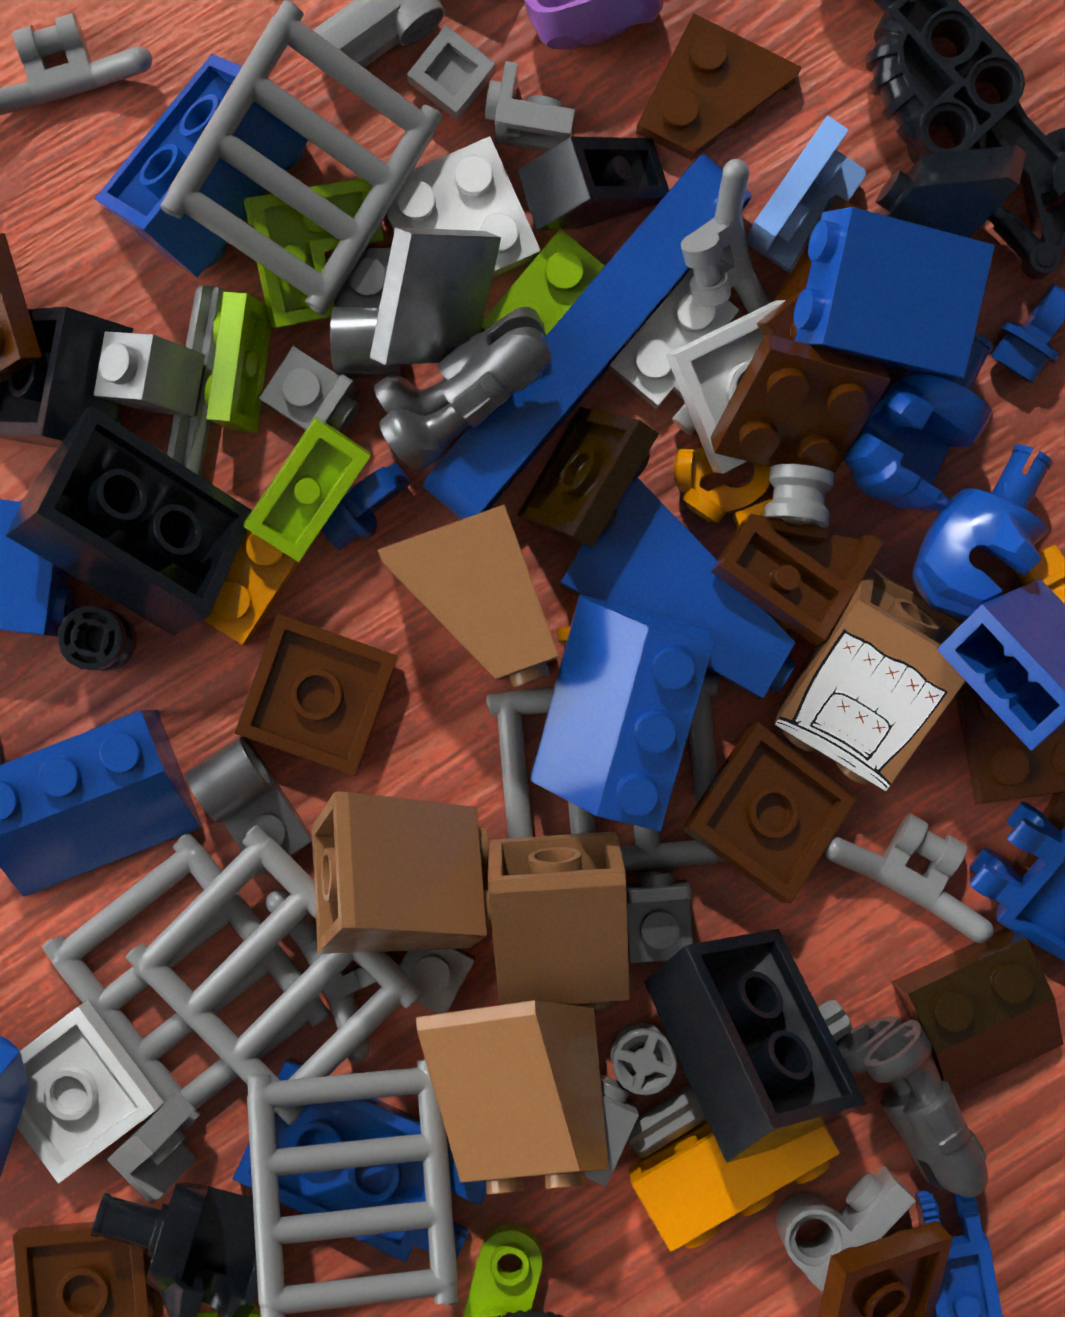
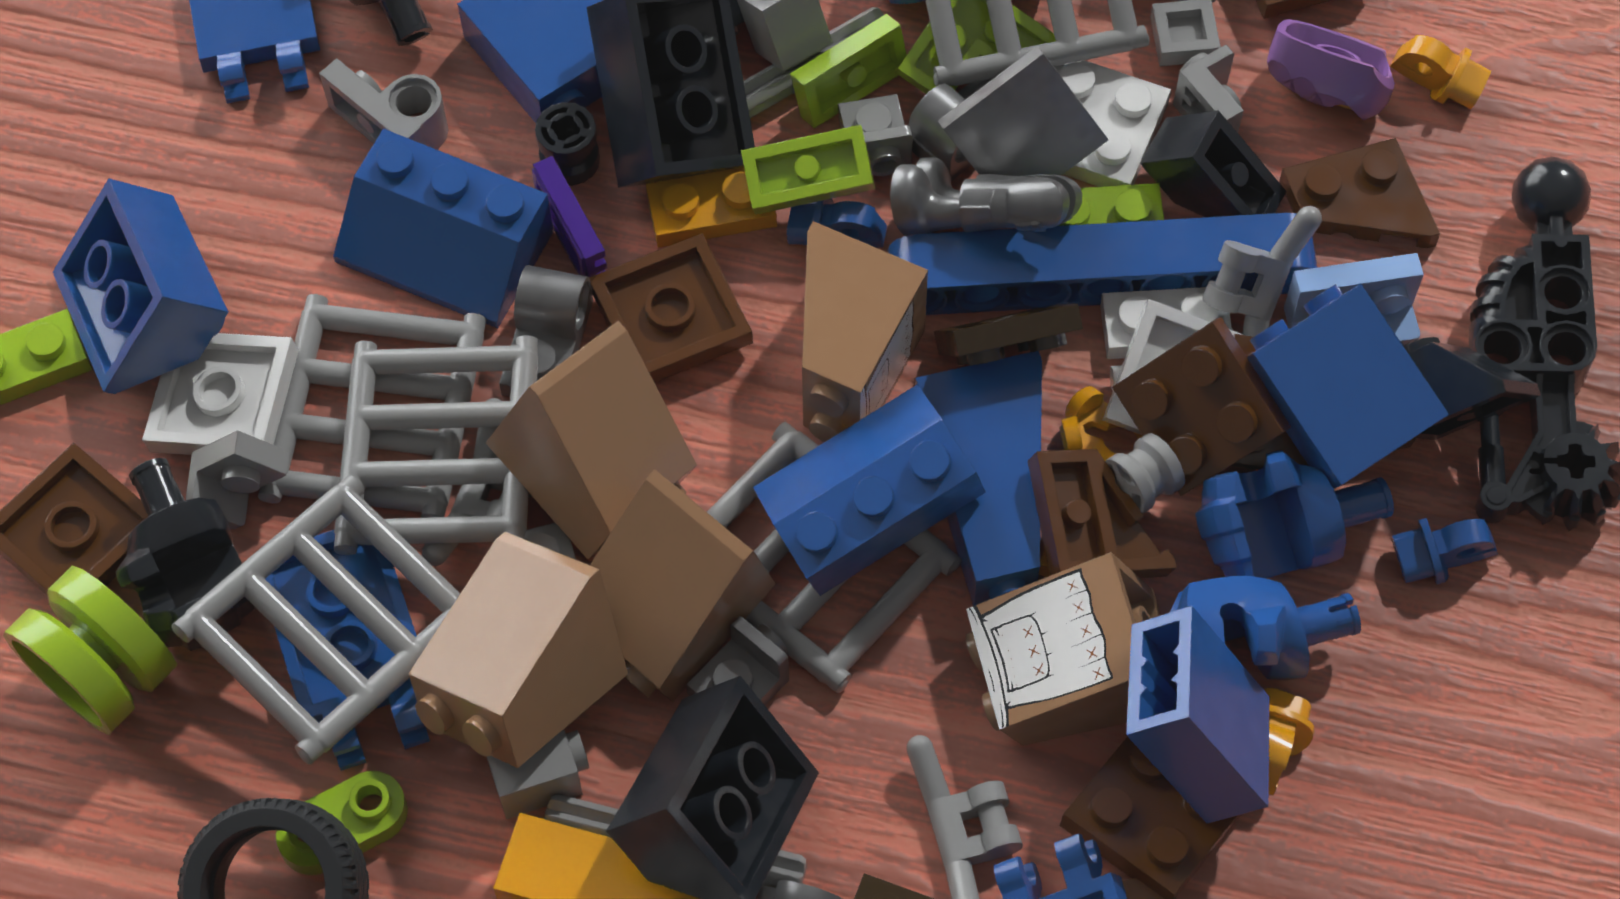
camera: 45 degrees right, 25 degrees down
(169, 701) = (569, 220): none -> dark purple tile
(641, 1070) = (619, 741): light grey wheel -> none
(770, 813) = (898, 673): reddish brown plate -> none

